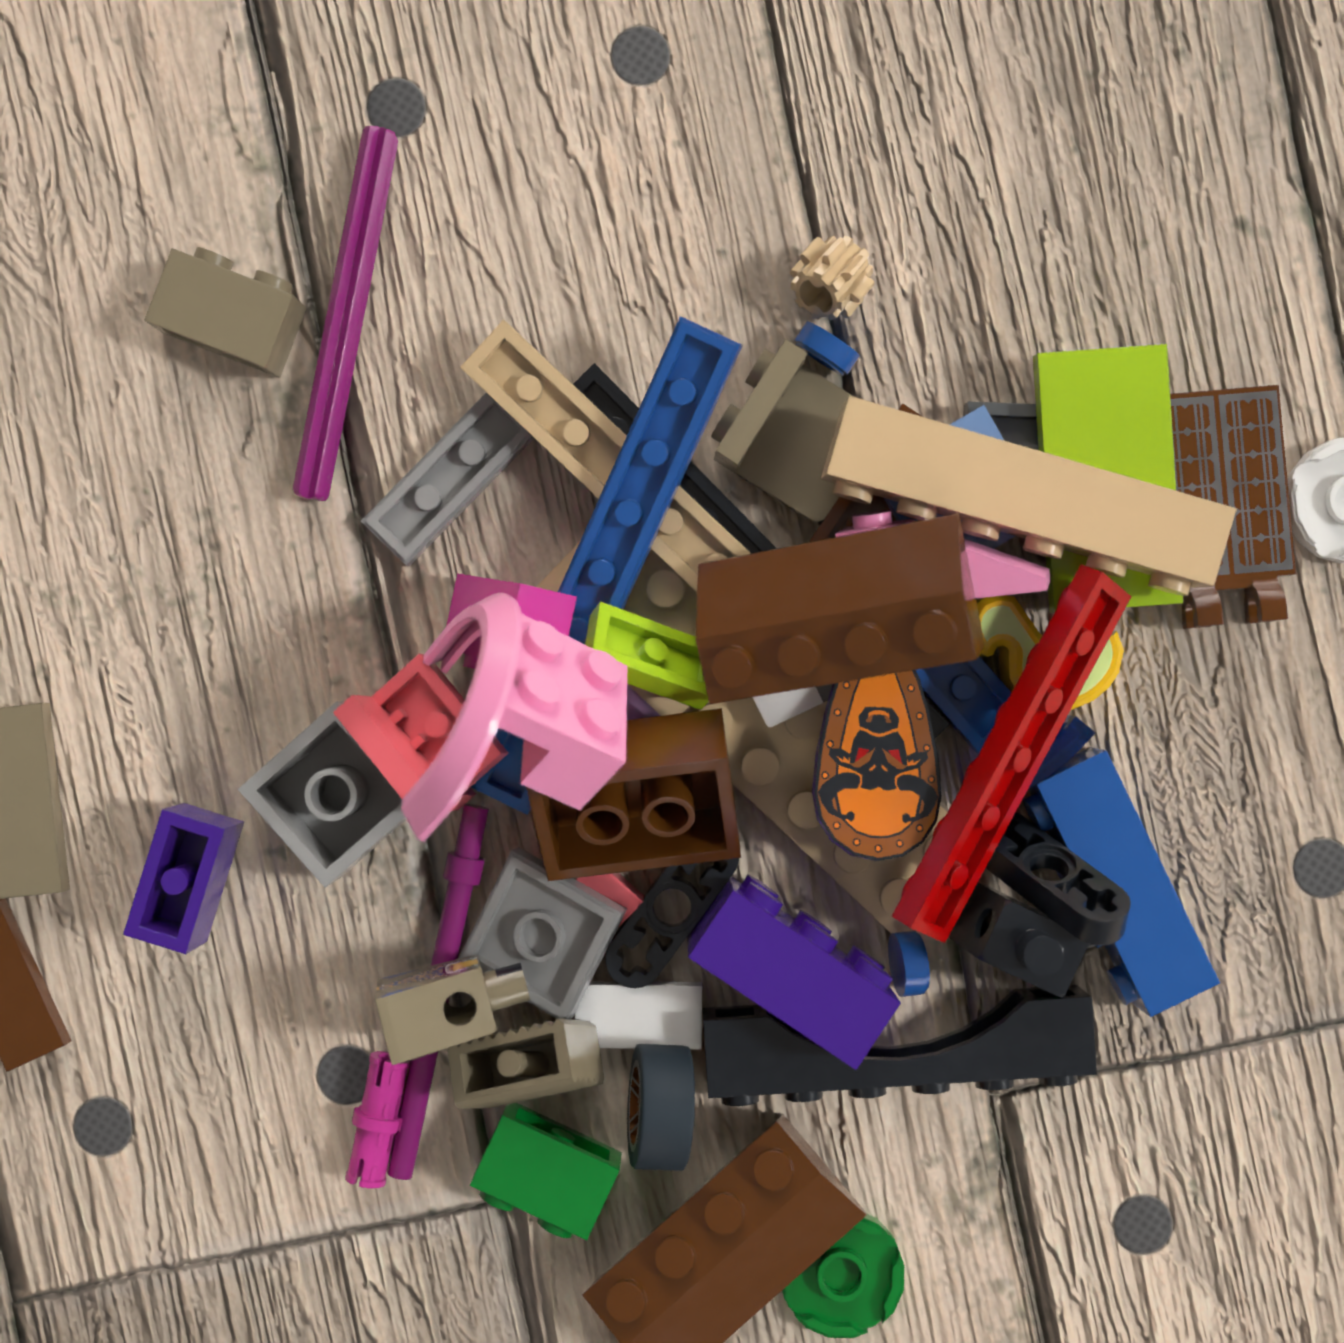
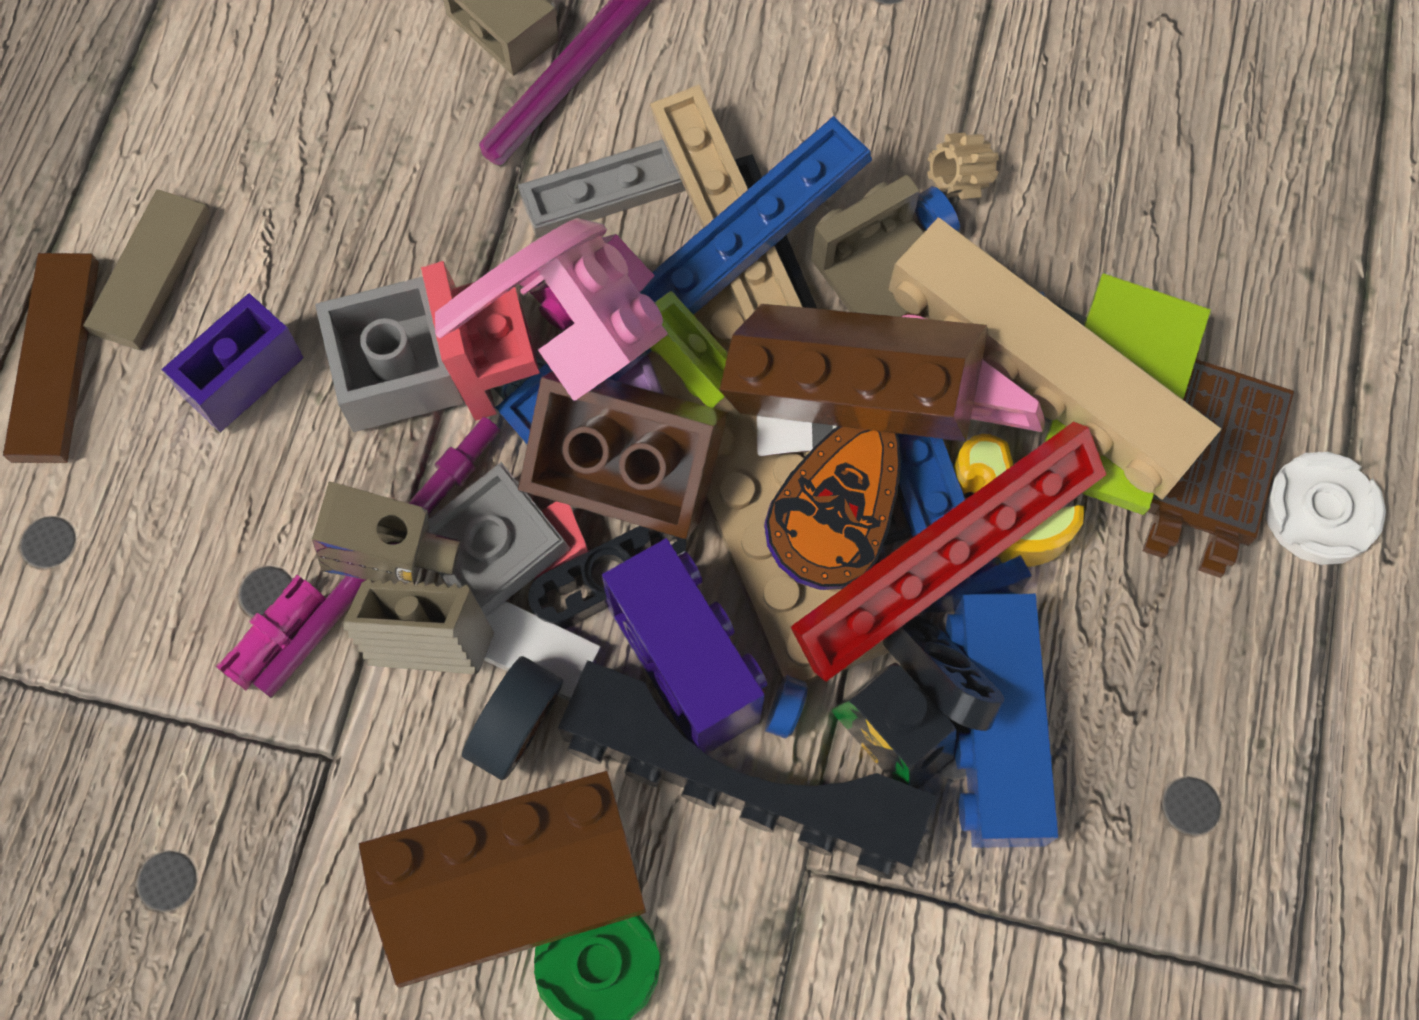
camera: 25 degrees right, 20 degrees down
(546, 1172) = (386, 738): green brick -> none

